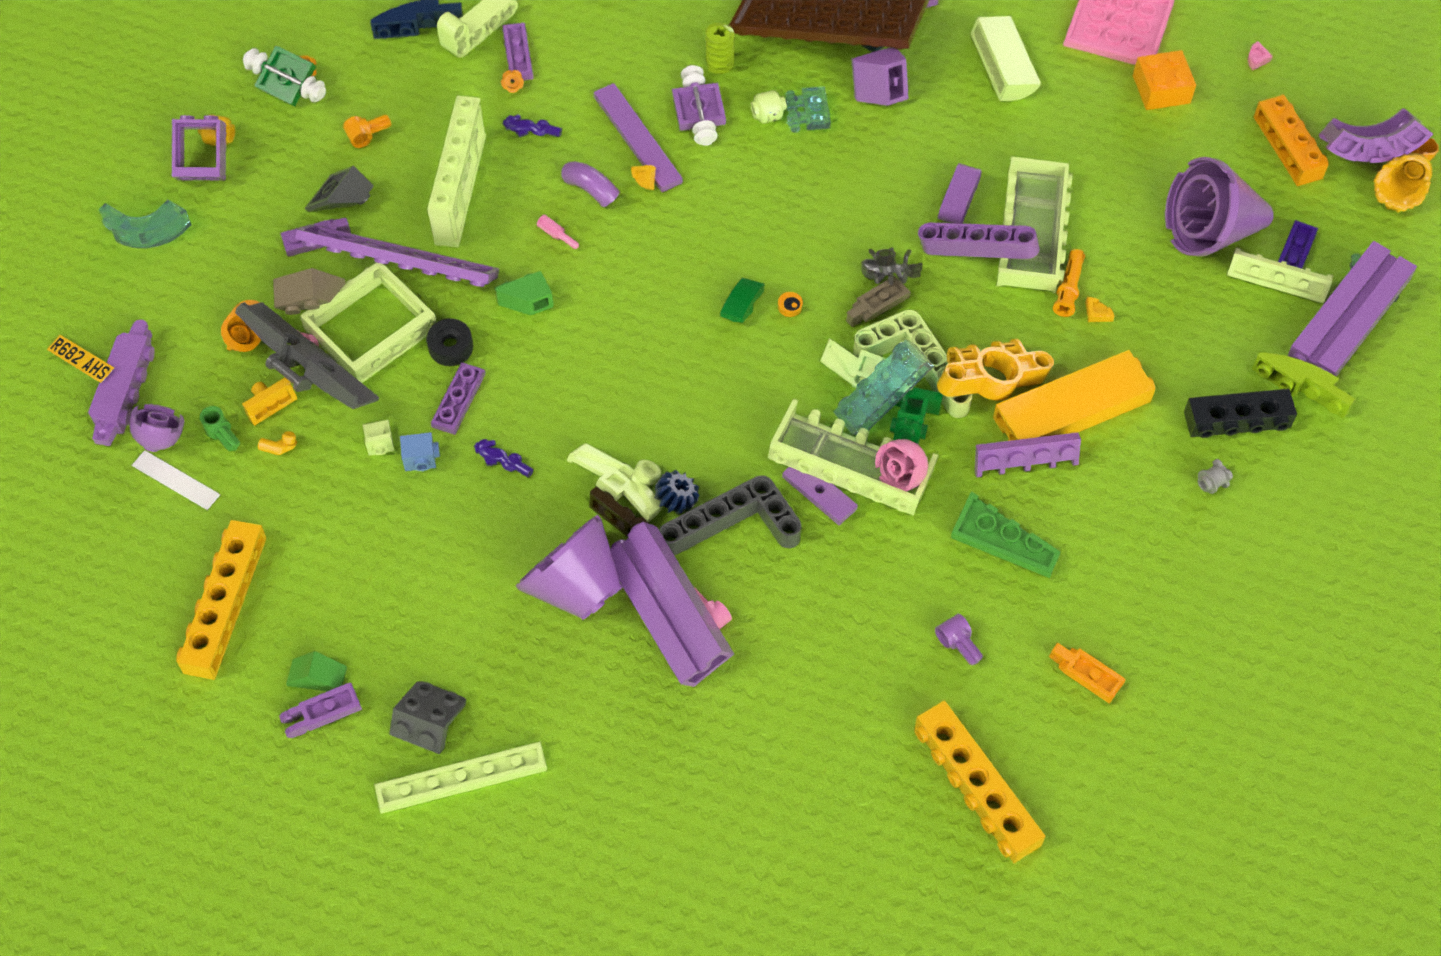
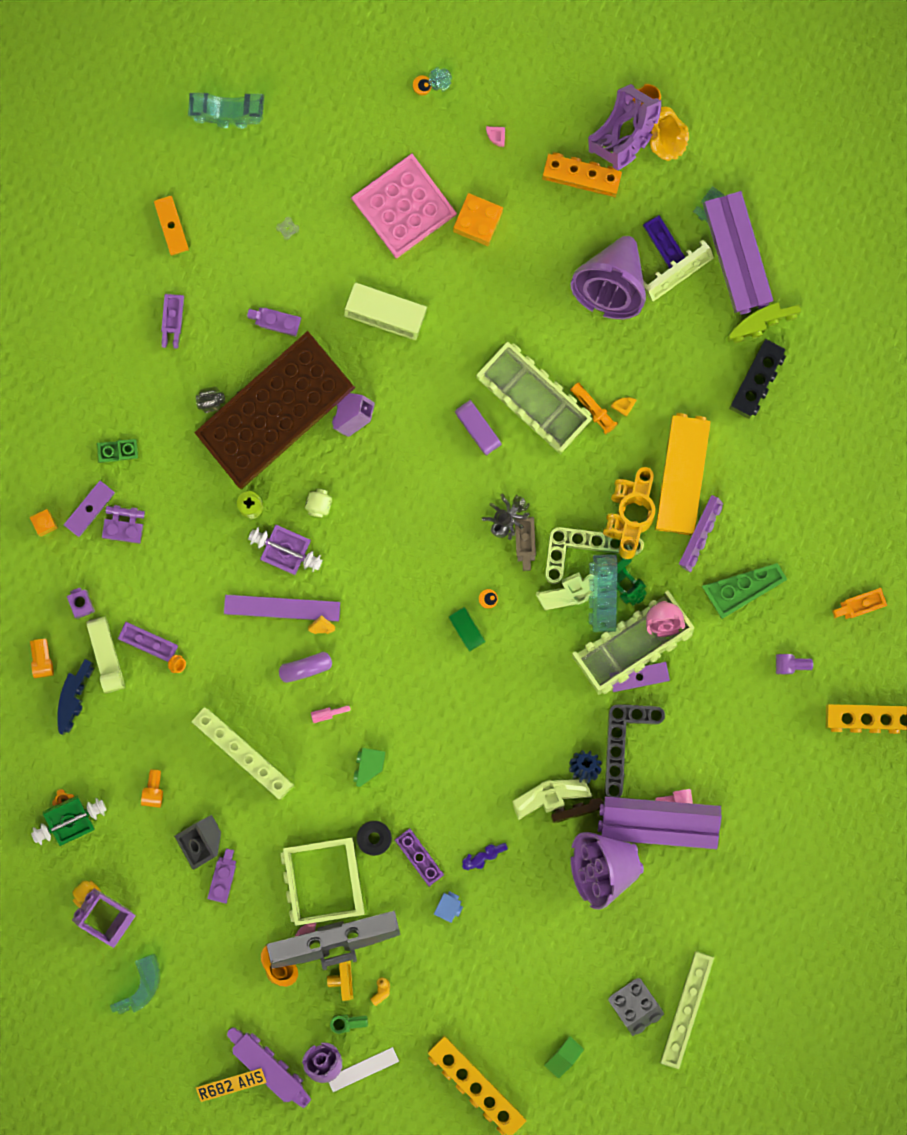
camera: 60 degrees left, 25 degrees up
(305, 290) = (282, 911): dark tan slope -> none
(321, 710) = (592, 1065): medium lavender hinge -> none
(378, 438) = (417, 925): yellowish green bracket -> none
(405, 256) = (287, 833): medium lavender plate -> none
(522, 127) = (220, 681): dark purple animal -> none
(647, 472) = (556, 773): yellowish green tile -> none
(815, 109) = (339, 471): clear light blue plate -> none
(979, 240) = (521, 451): medium lavender beam -> none
(1214, 477) = (789, 431): light grey brick -> none

